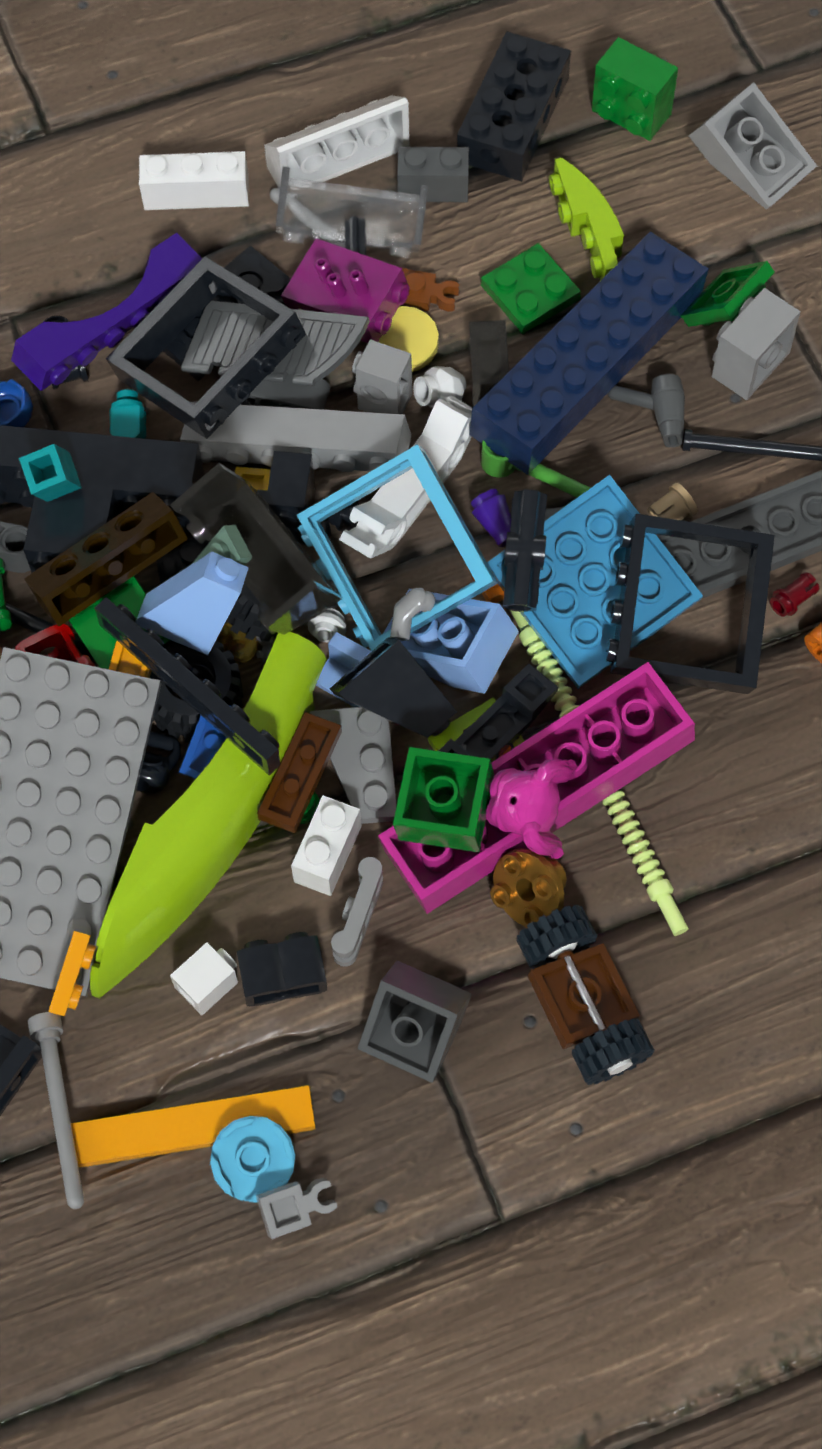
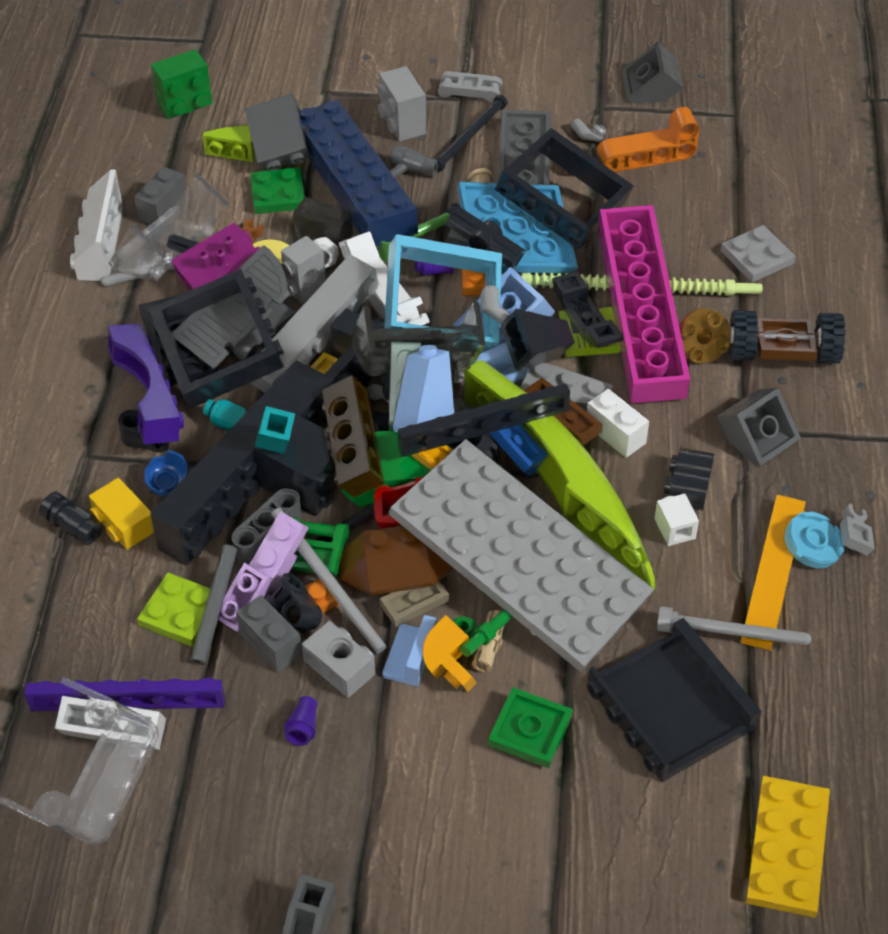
camera: 65 degrees left, 15 degrees down
(67, 991) = (644, 577): light orange plate -> none
(194, 180) = (64, 311): white brick -> none
(358, 912) = (671, 423): light grey plate -> none
(443, 799) = (640, 328): green brick -> none
(506, 143) = (140, 140): black brick -> none
(535, 805) = (679, 294): dark pink hair -> none
(600, 231) = (277, 132): none -> dark grey panel
(727, 294) = (361, 98): green plate -> none
(753, 147) = (258, 59): light grey slope -> none
(753, 902) = (757, 253): none -> light grey plate

